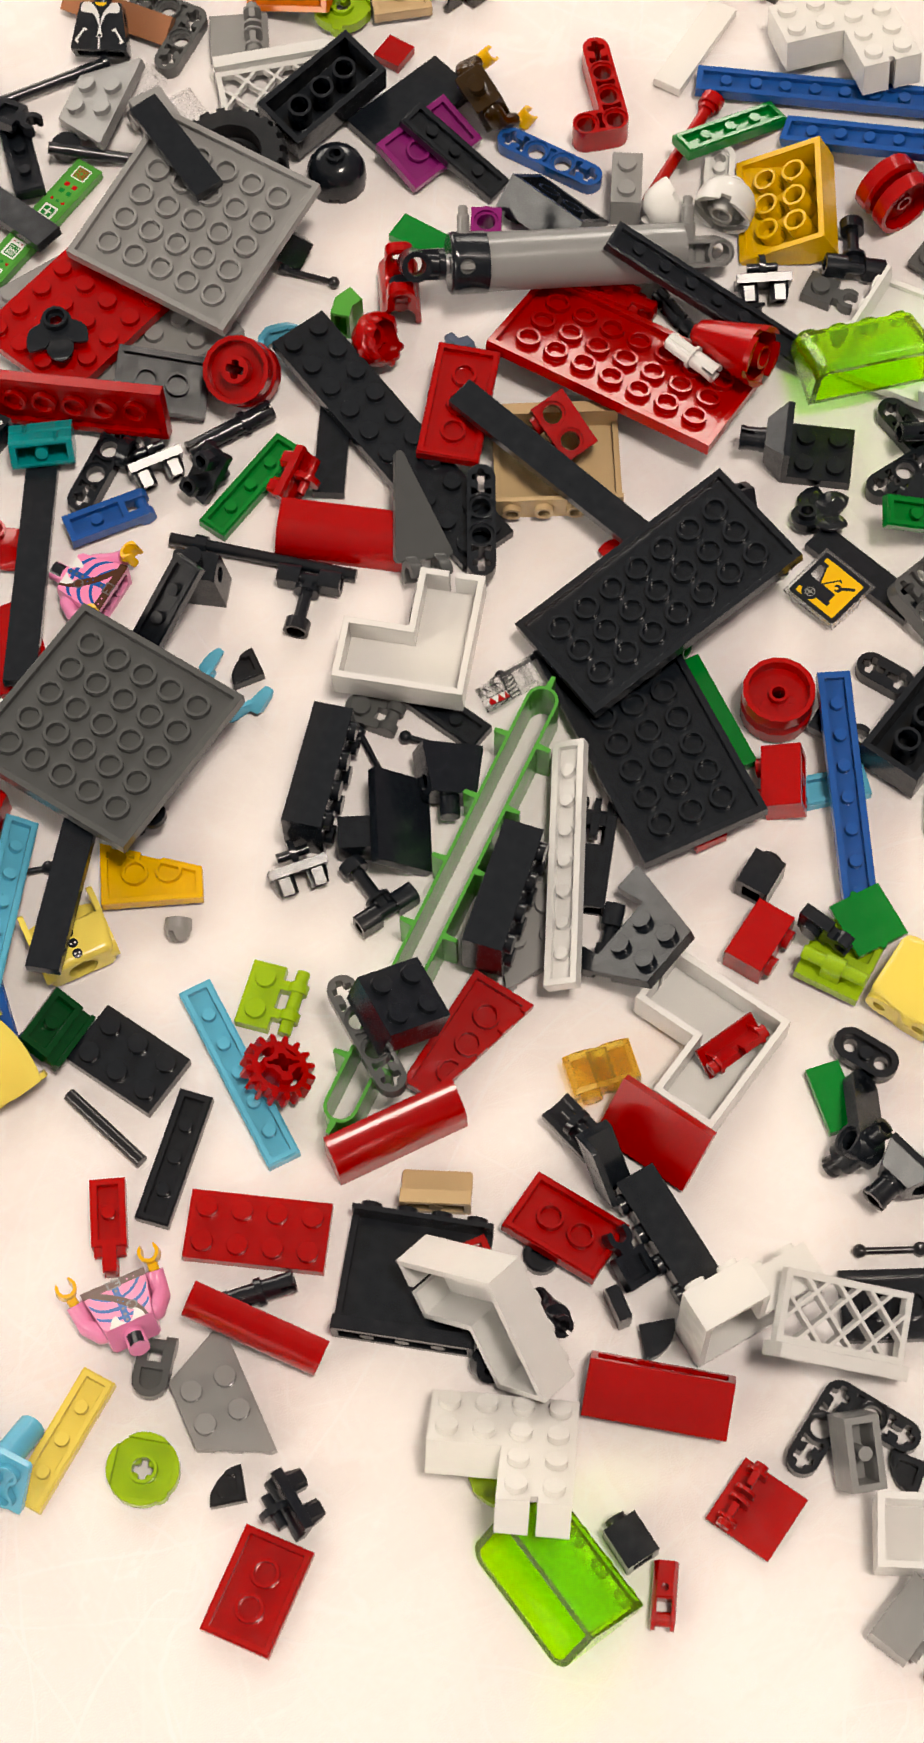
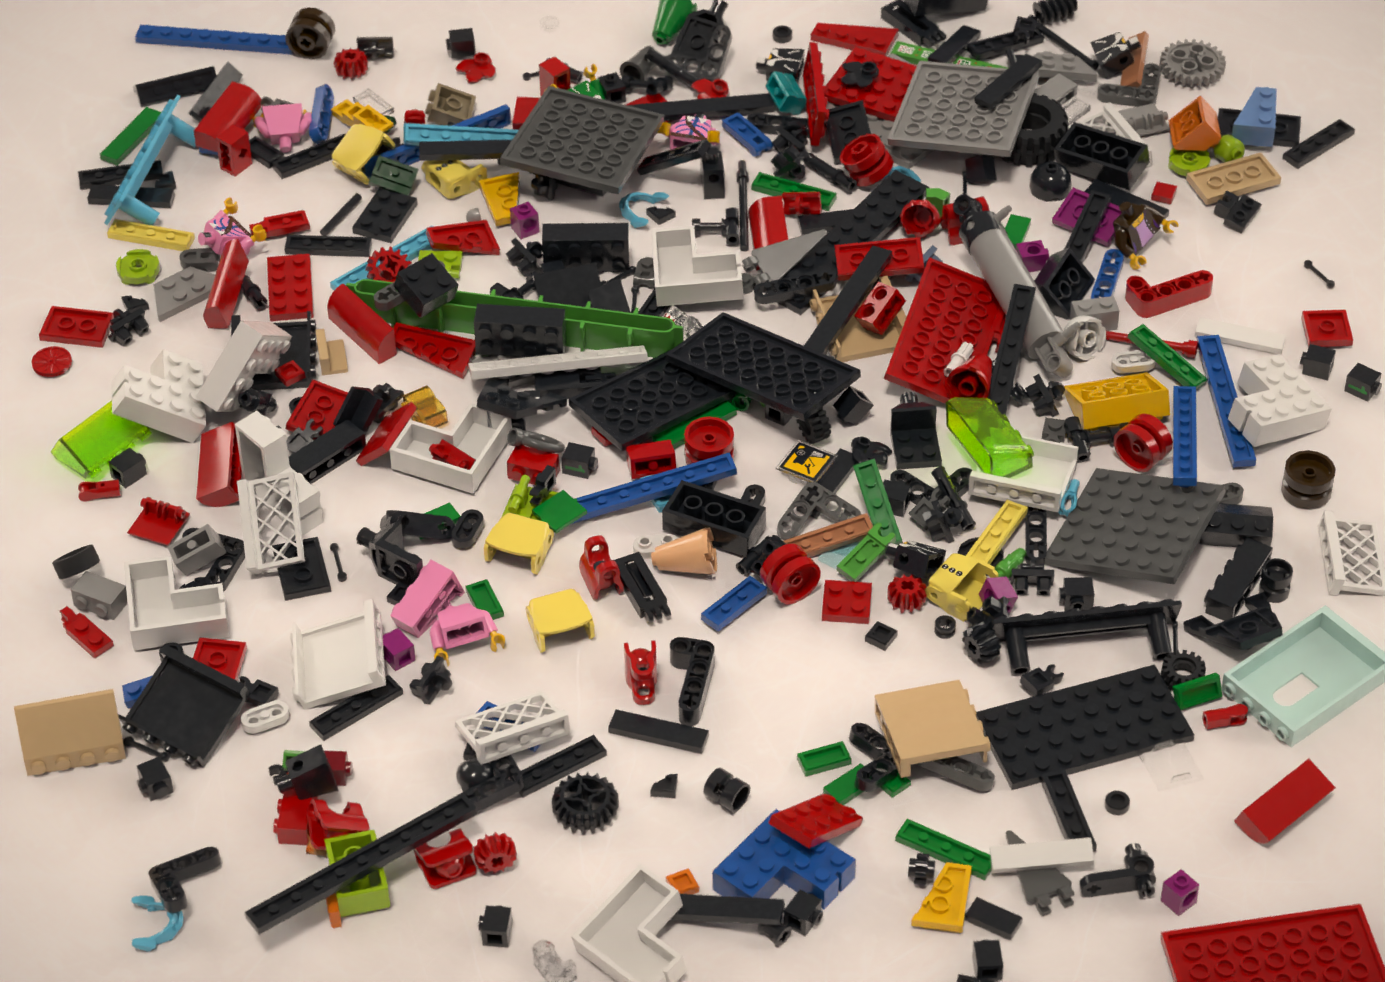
camera: 75 degrees right, 20 degrees down
(217, 855) = (524, 220): none -> magenta brick
(229, 948) = (464, 237): none -> red wing
(335, 1643) = (51, 361): none -> red wheel
(726, 203) = (1100, 360): white cylinder -> none
(733, 948) = (534, 440): none -> dark grey piece
(819, 1651) = (76, 561): none -> black tyre

